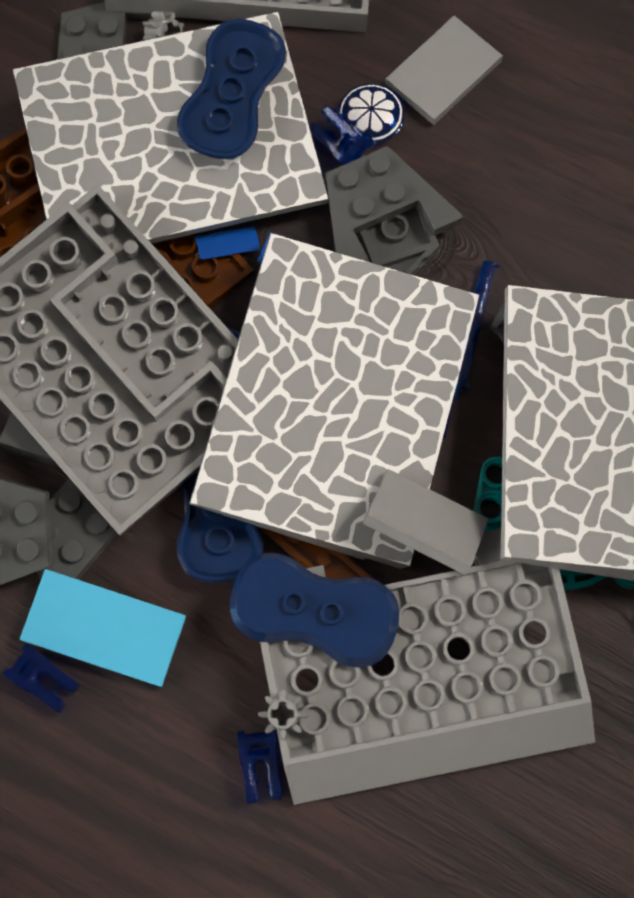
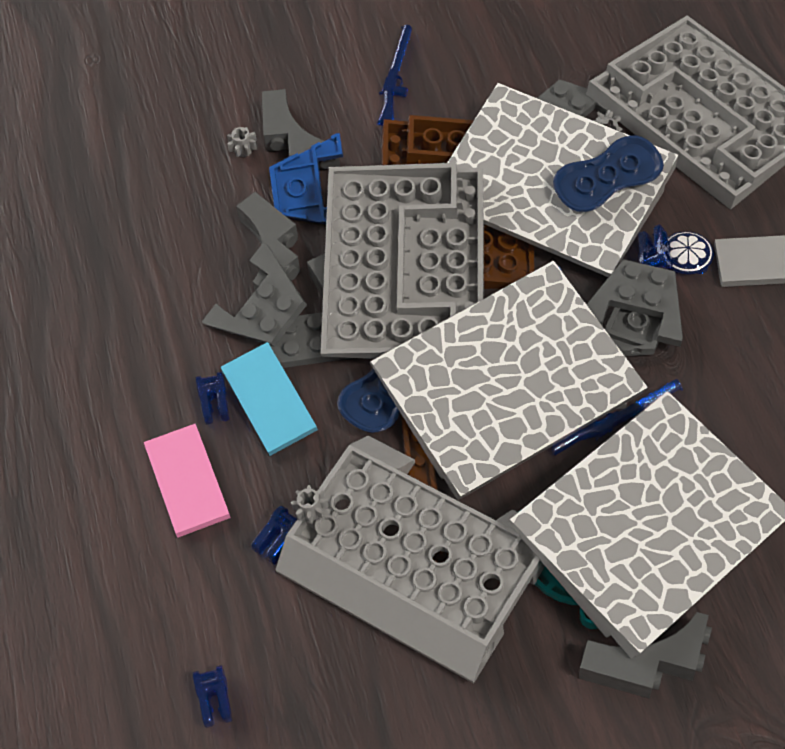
camera: 45 degrees right, 15 degrees down
(102, 792) = (186, 480): none -> bright pink tile
(227, 242) = (529, 257): blue sticker -> none
(342, 617) = (391, 484): dark blue plate -> none
(426, 521) = (489, 474): light grey tile -> none

